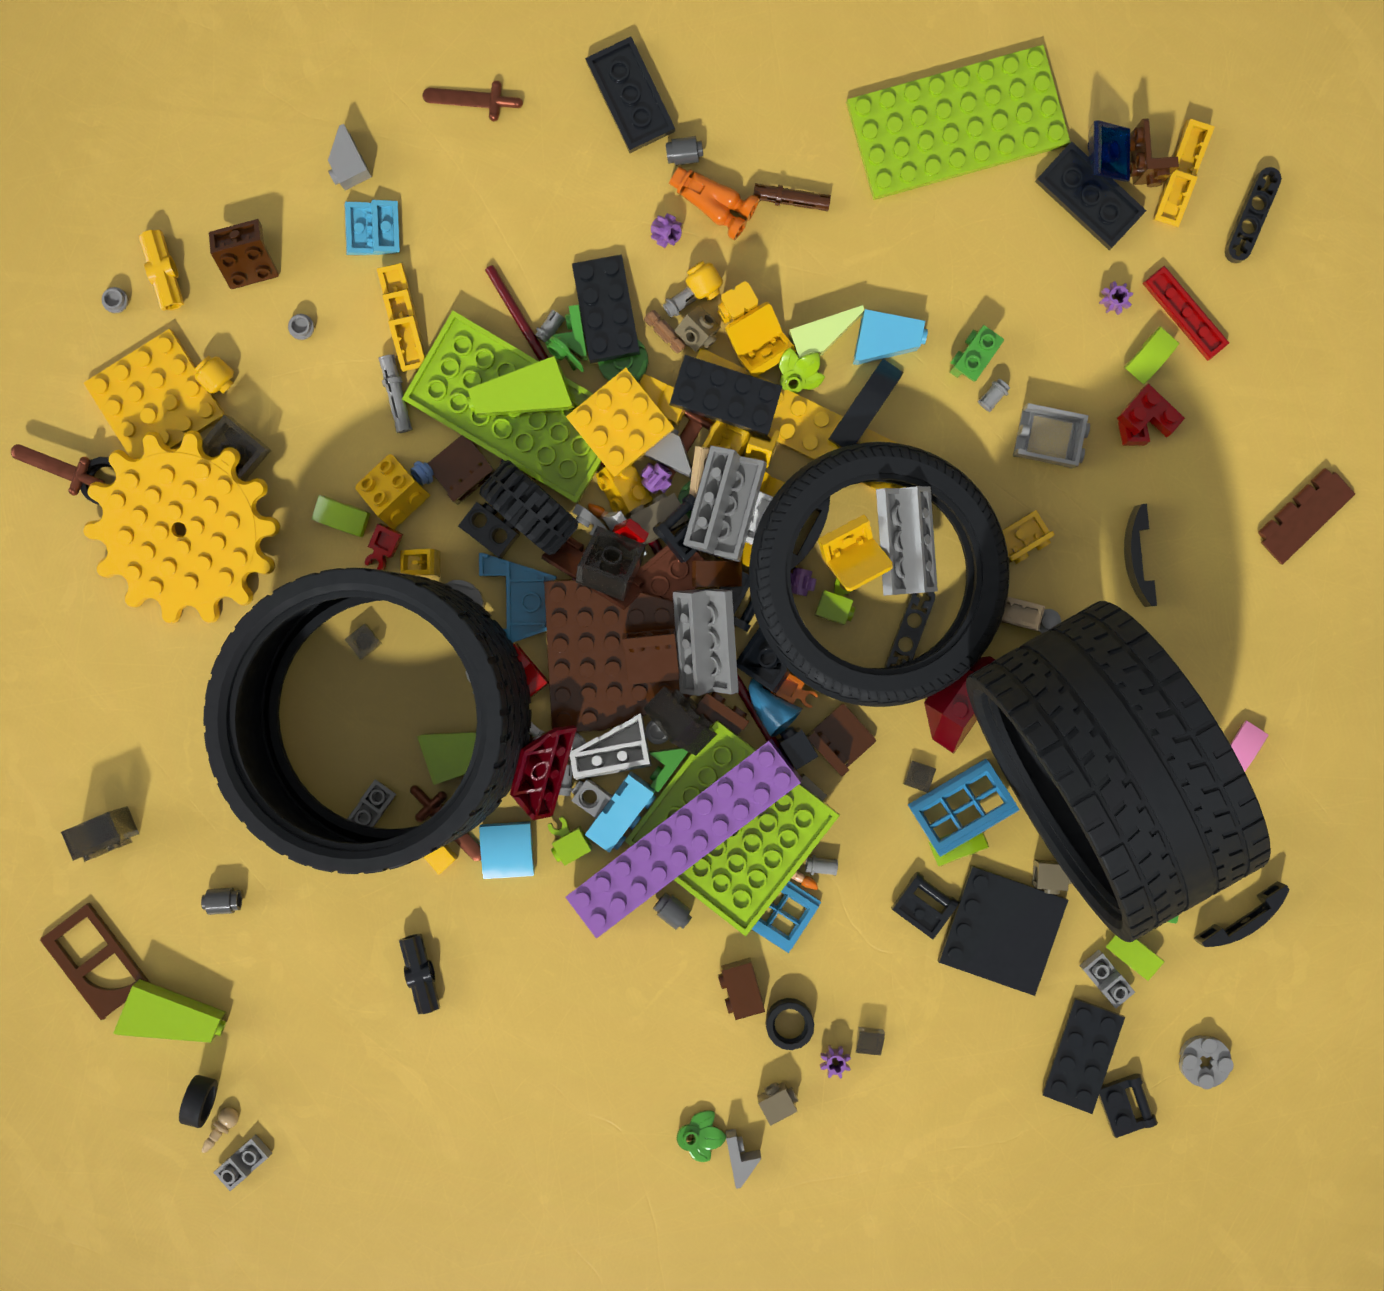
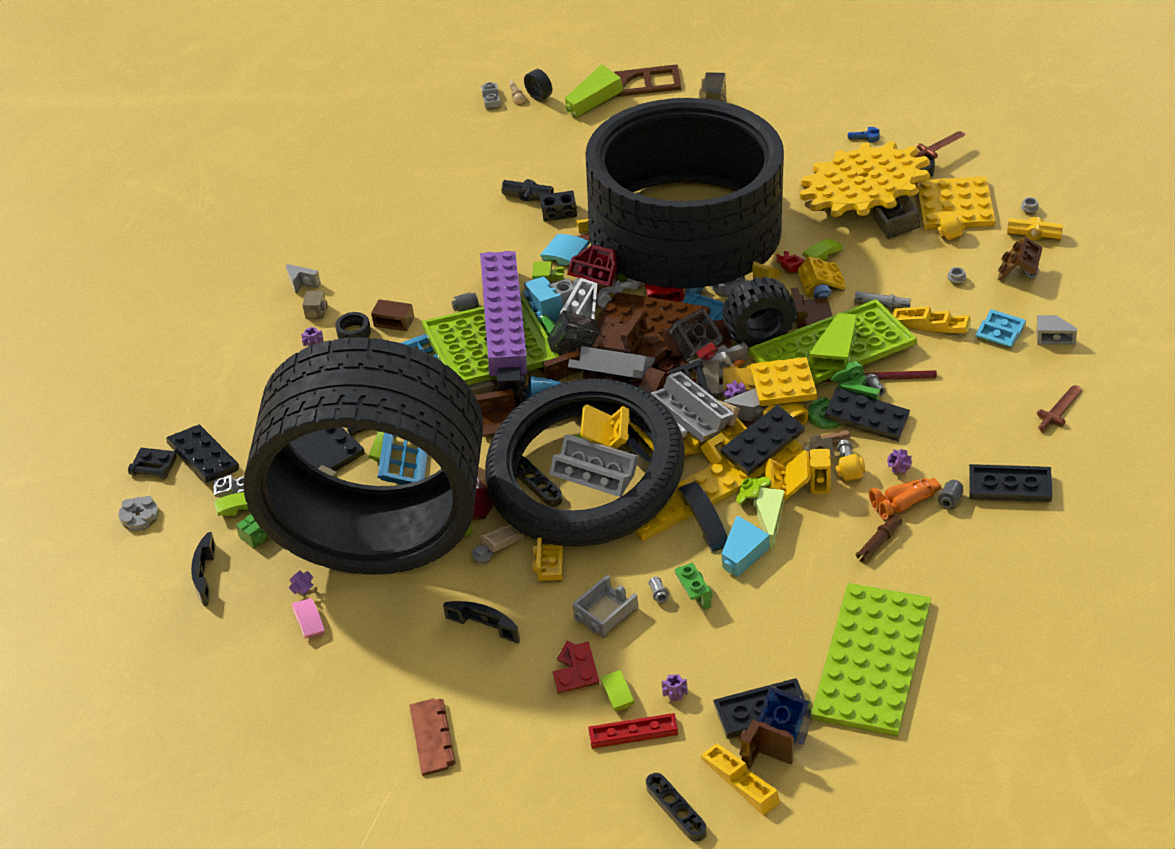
camera: 130 degrees right, 45 degrees down
(71, 578) = (871, 134): none -> blue bar
(425, 915) = (558, 205): none -> black brick
(705, 1136) = (329, 267): bright green plate -> none

